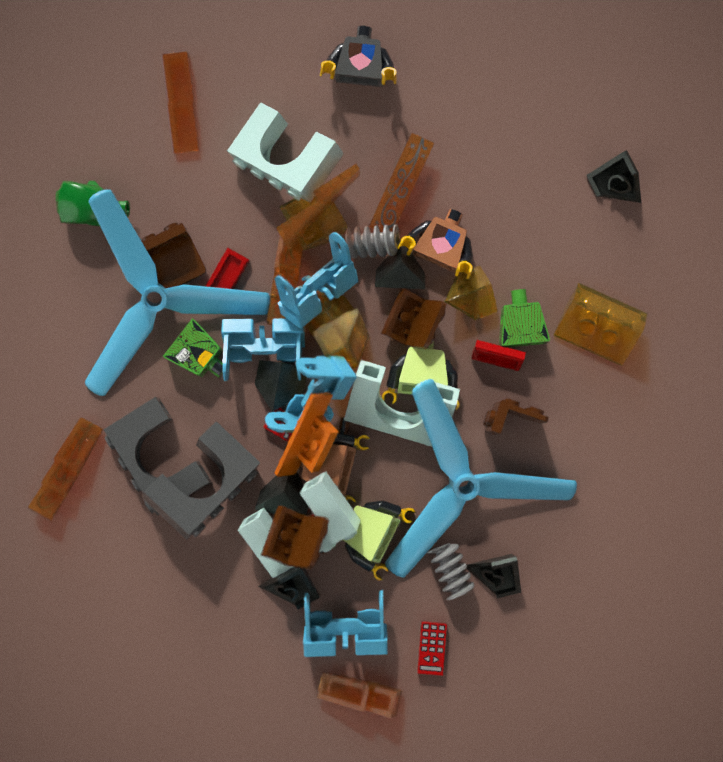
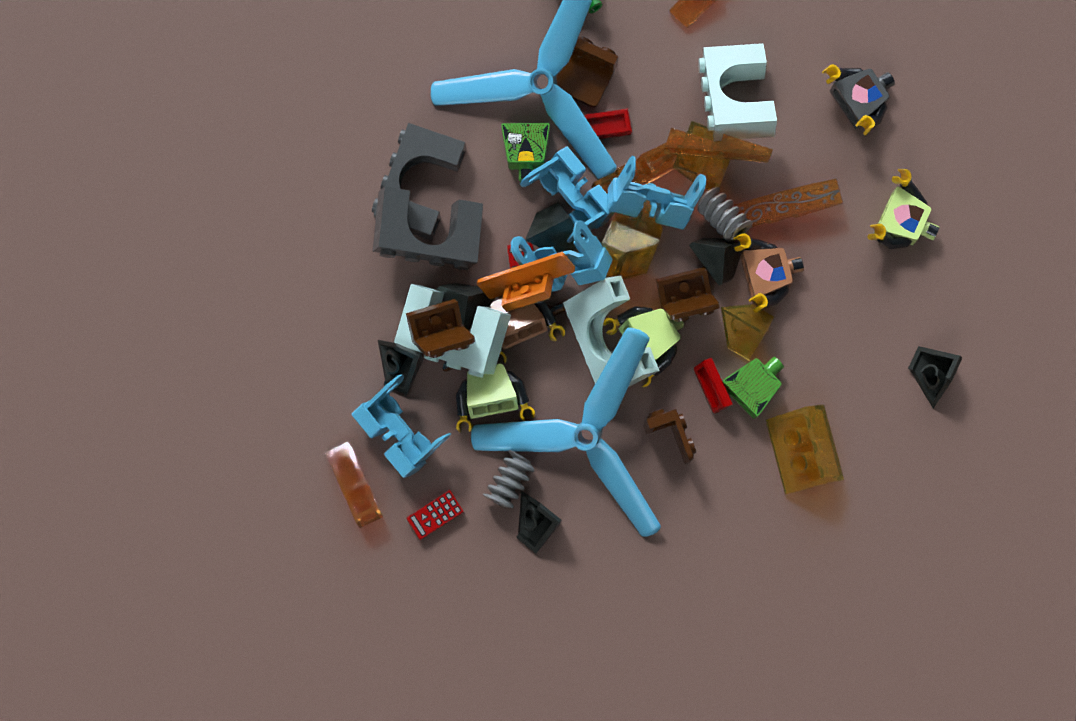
camera: 50 degrees right, 5 degrees down
(65, 469) = (354, 120): clear orange slope -> none
(480, 105) = (904, 216): none -> torso

